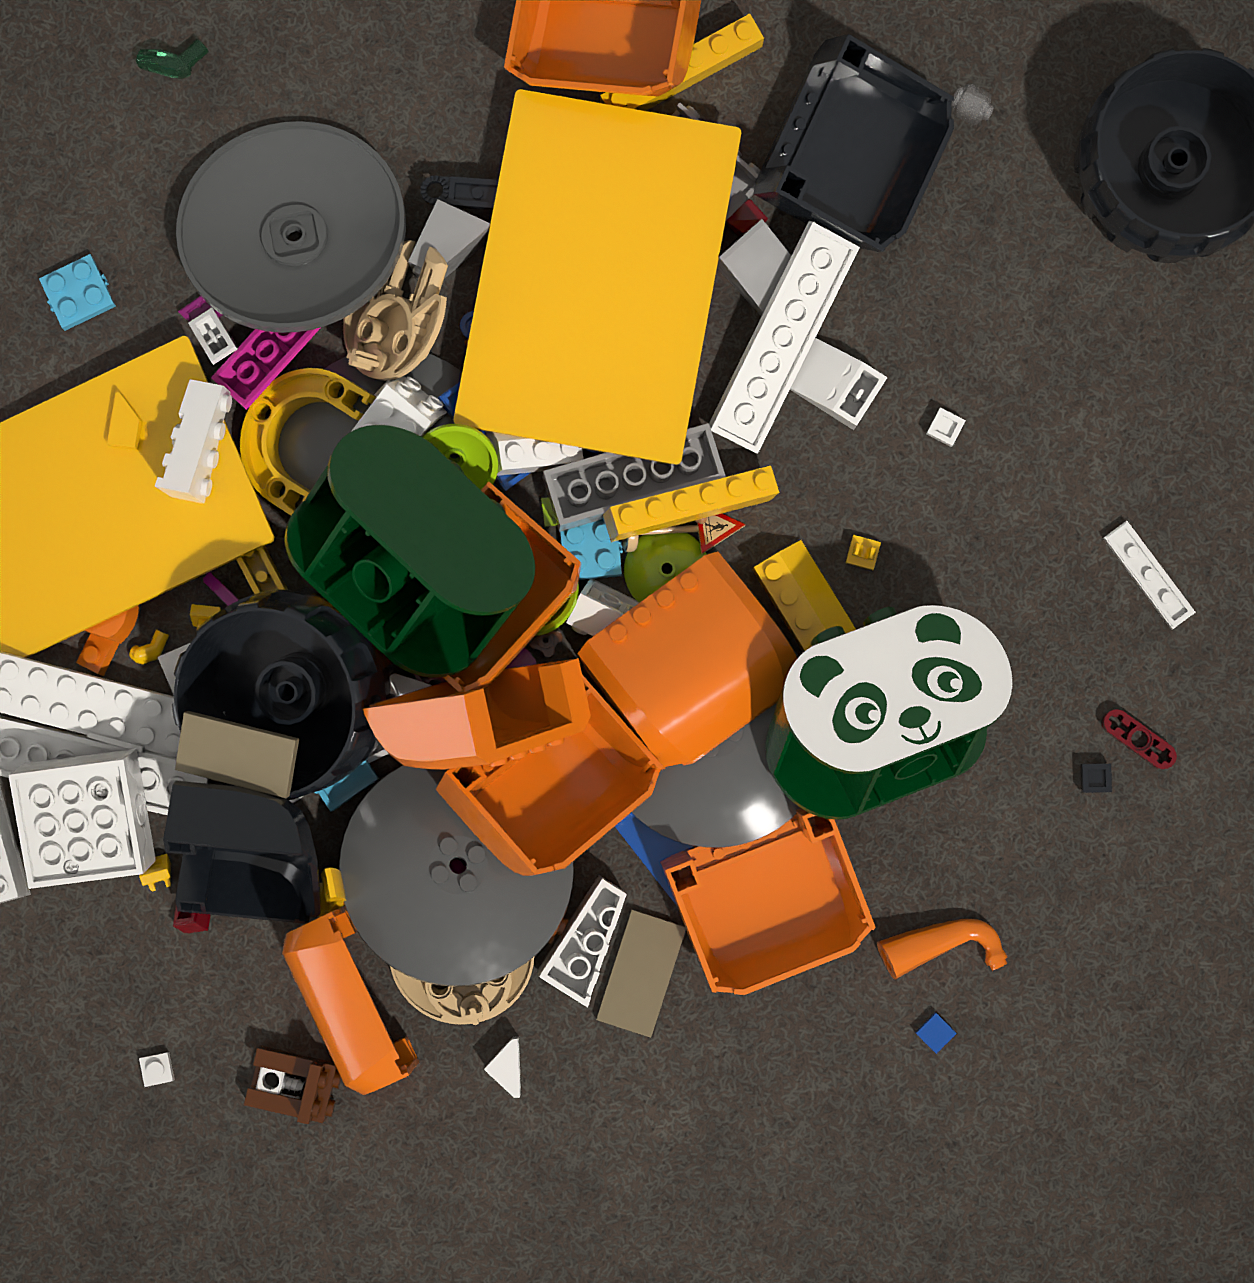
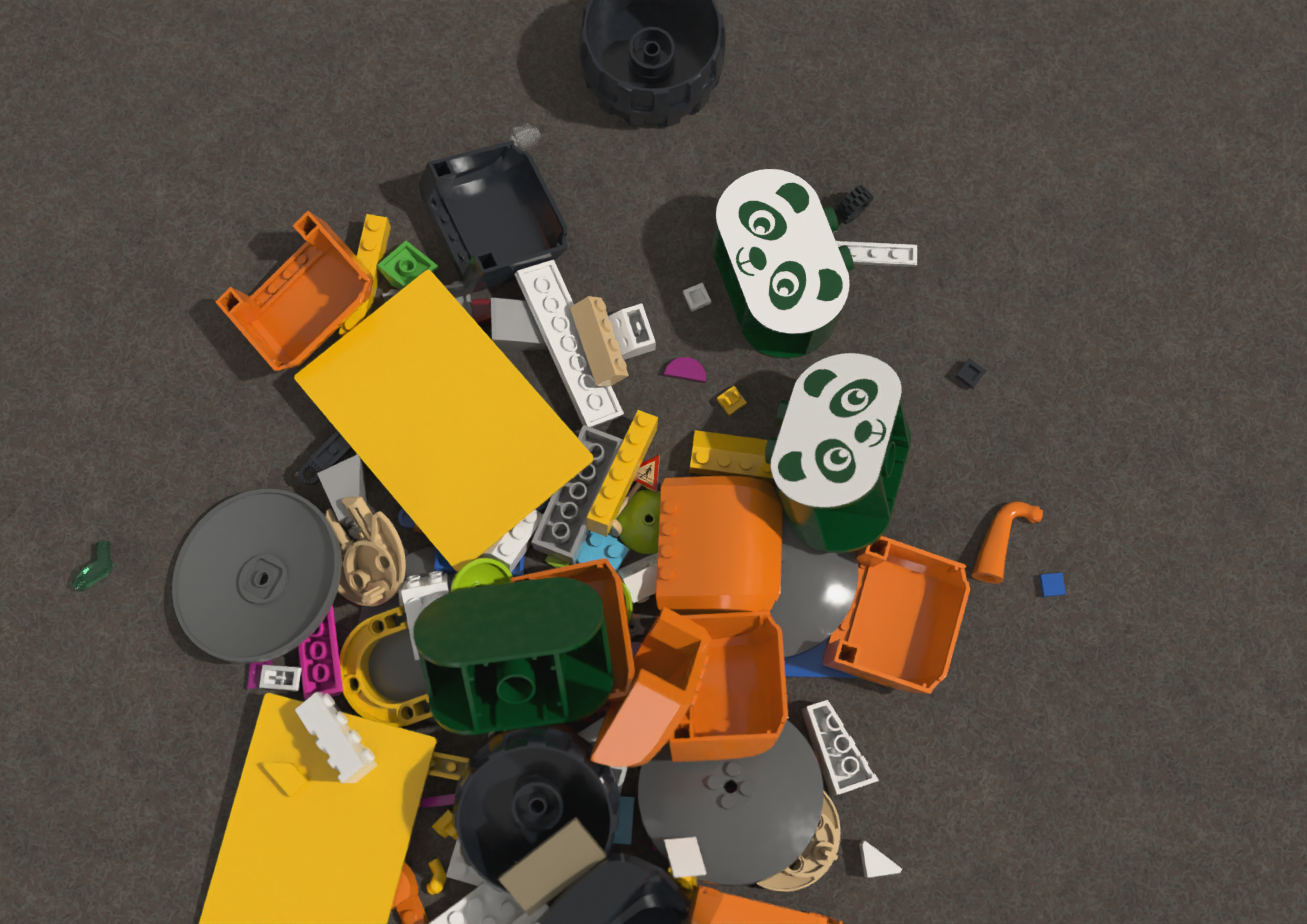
camera: 55 degrees left, 10 degrees down
(77, 292) = (181, 741): medium azure plate -> none
(352, 874) = (685, 857): none -> white sticker
(641, 973) = (881, 732): dark tan tile -> none
(729, 100) = (405, 265): none -> bright green slope
(809, 366) = (599, 341): none -> tan brick
(858, 478) = (686, 369): none -> magenta tile
(1048, 486) = (781, 262): none -> brick
(1160, 746) = (982, 334): dark red beam -> none
(1184, 510) = (854, 204): none -> black tyre

